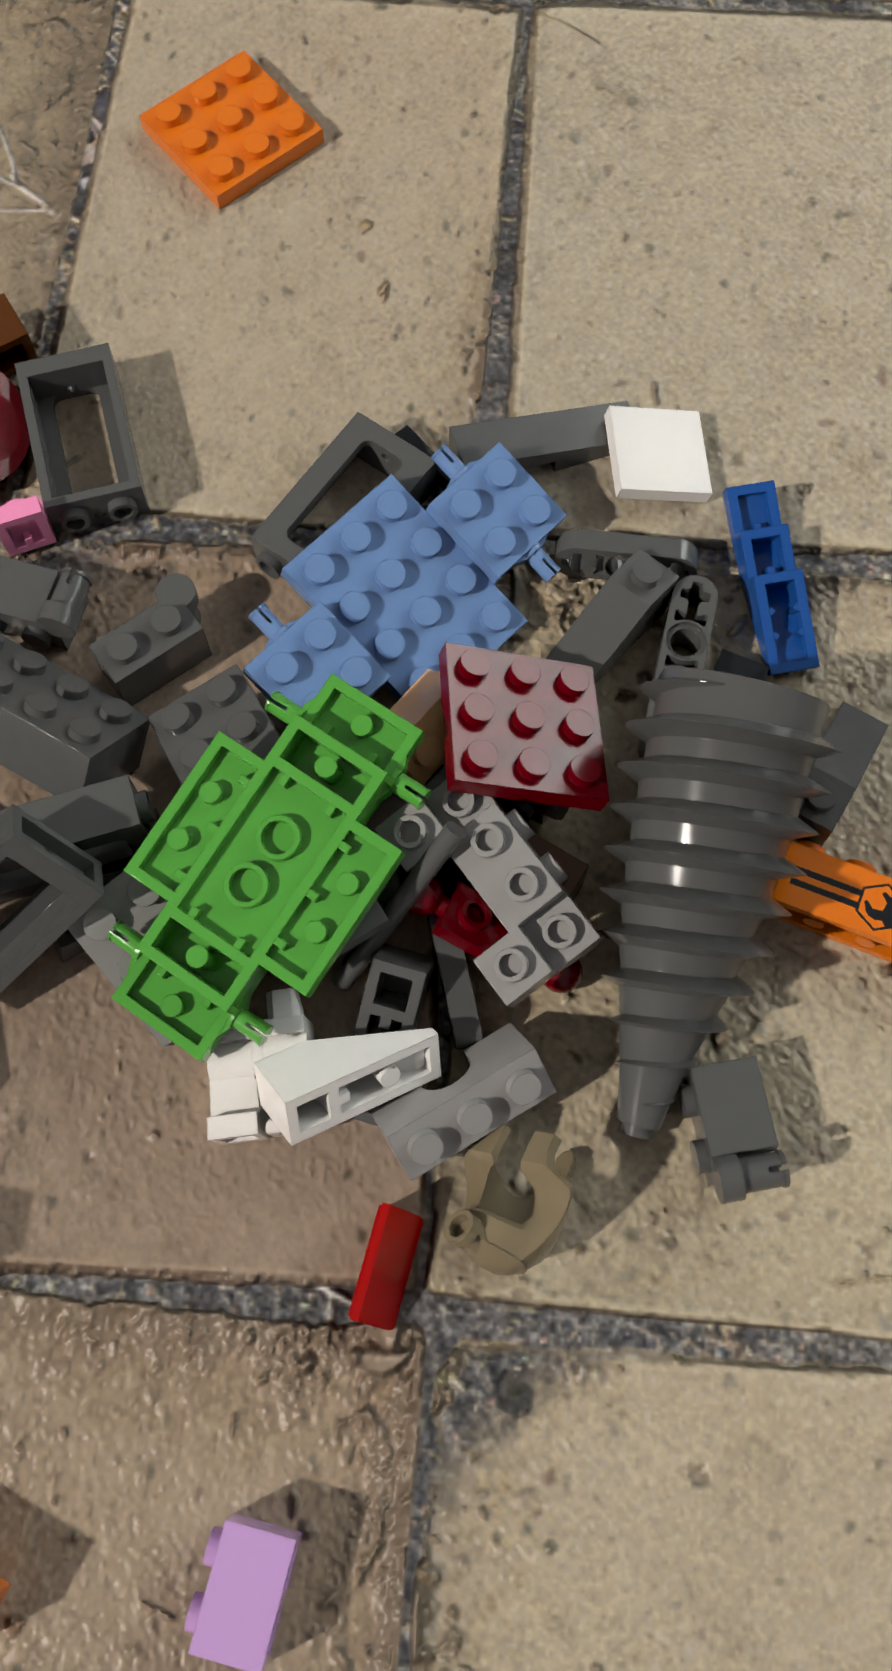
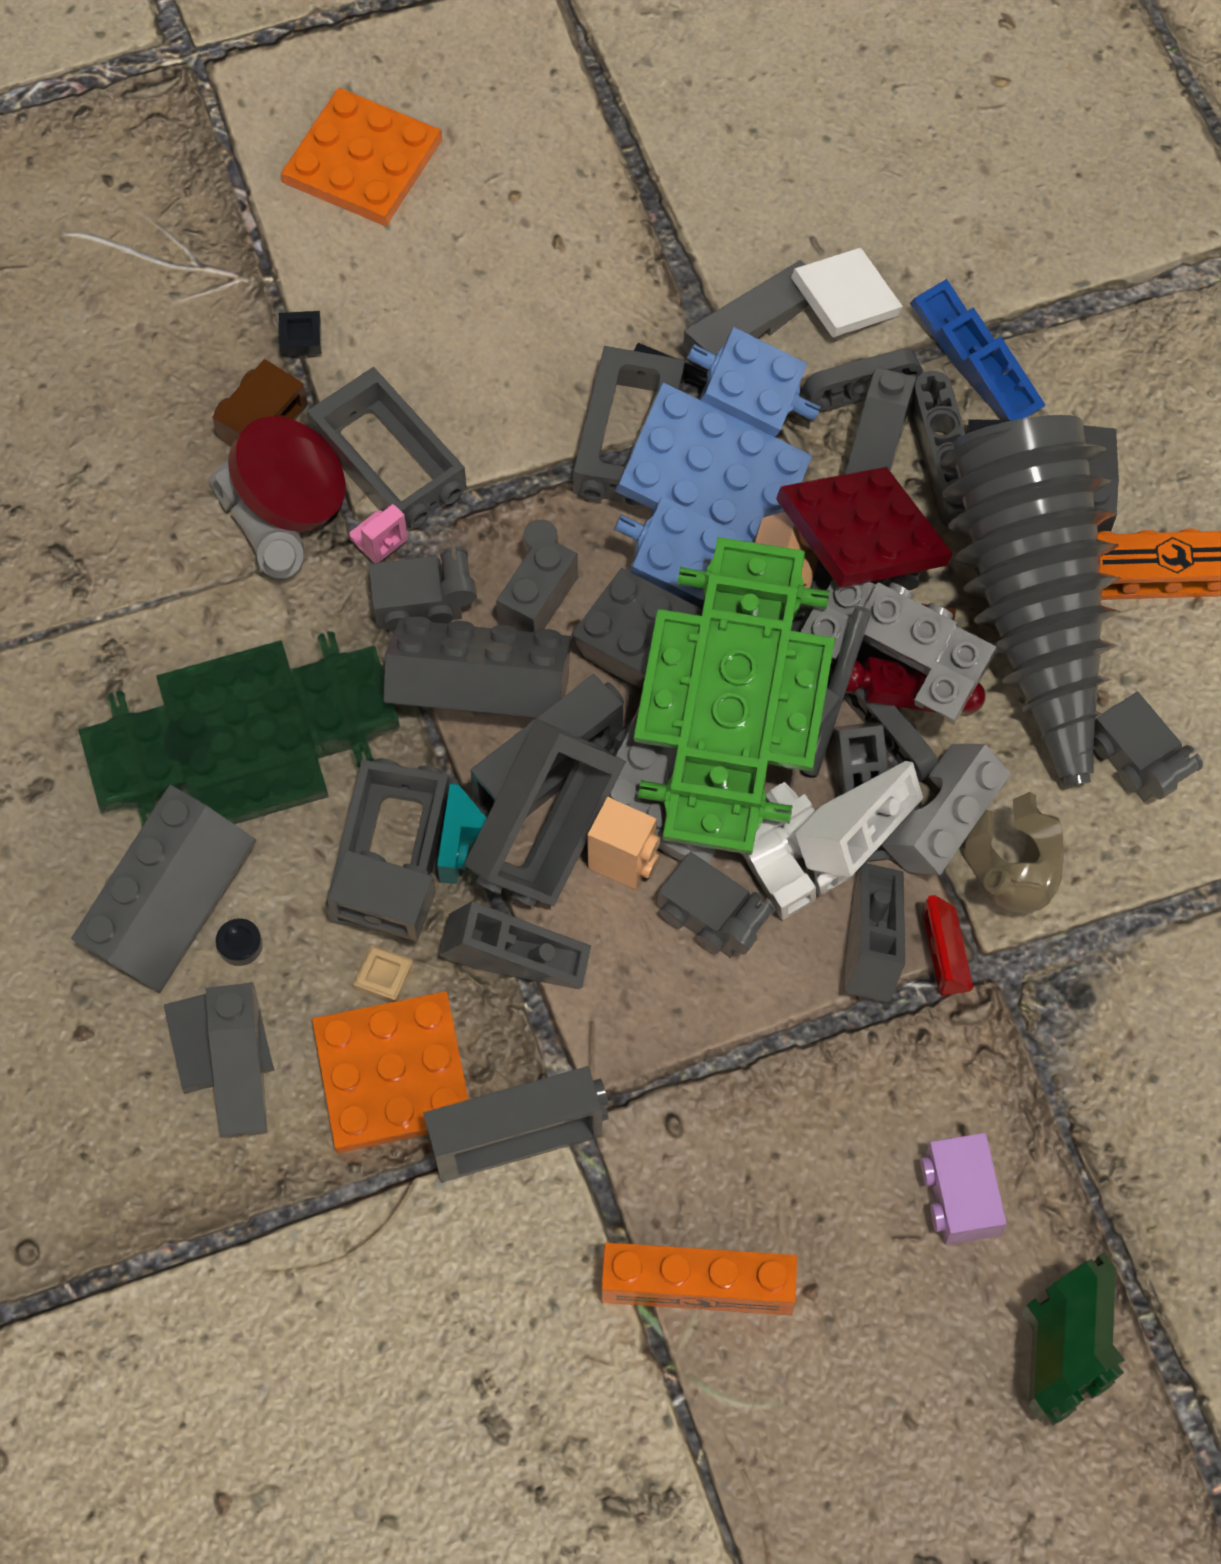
camera: 25 degrees left, 5 degrees down
(66, 283) = (300, 333): none -> black plate
(71, 983) = (623, 844): none -> light nougat brick
(142, 1099) = (713, 907): none -> dark grey hinge
(309, 1213) = (876, 933): none -> dark grey slope

